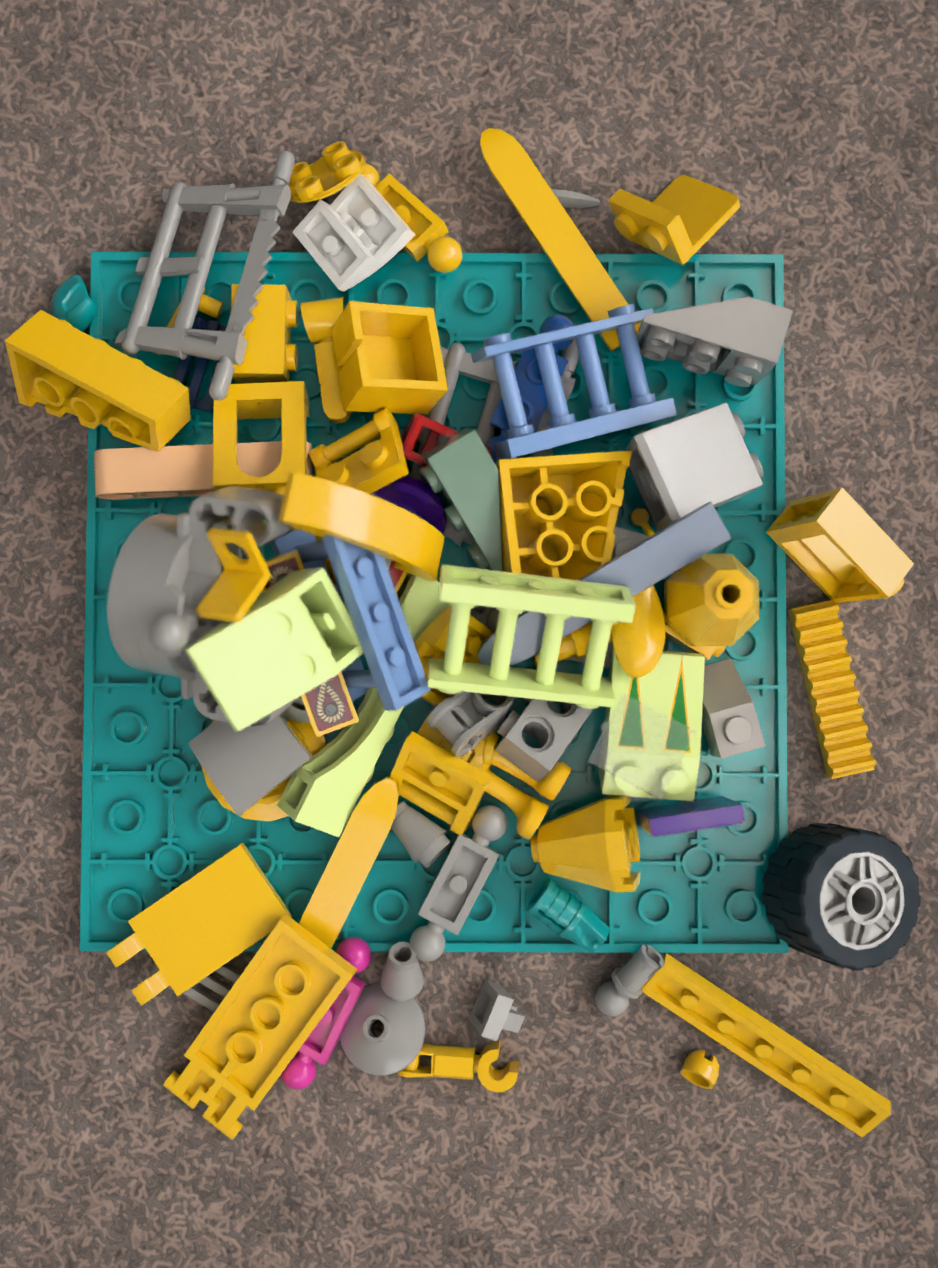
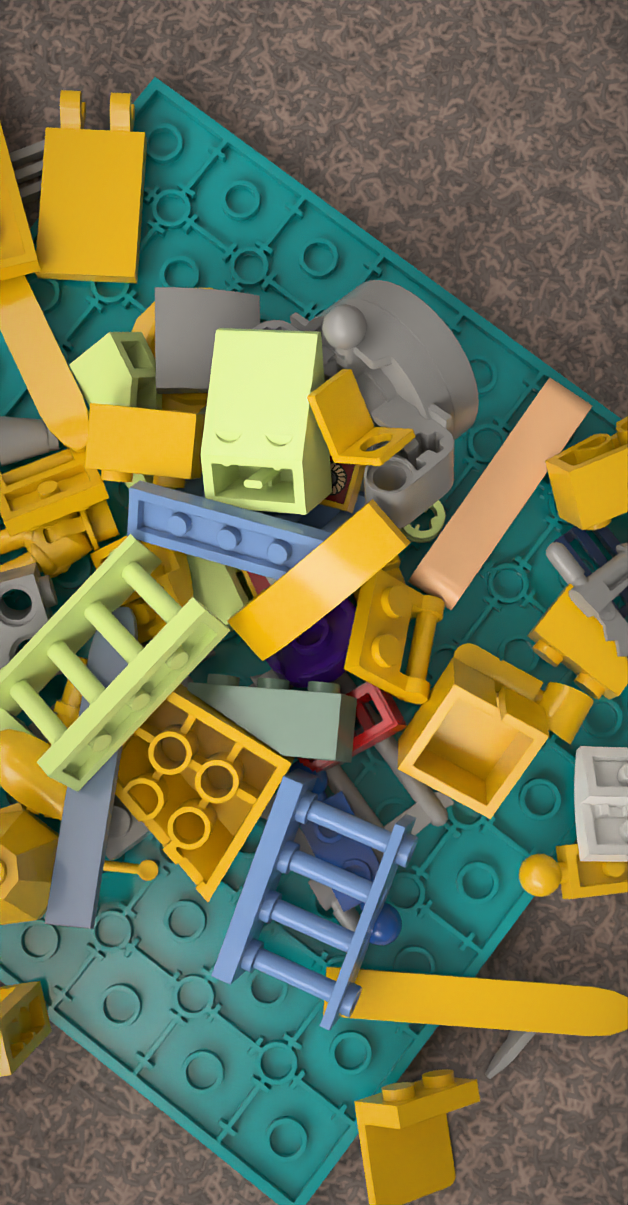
camera: 135 degrees right, 5 degrees down
(260, 401) = (429, 563): yellow panel -> none
(355, 731) = (144, 442): none -> yellow brick
(469, 719) = (78, 552): light grey piece -> none
(693, 464) = (149, 956): slope -> none
(724, 337) = (235, 1097): light grey slope -> none

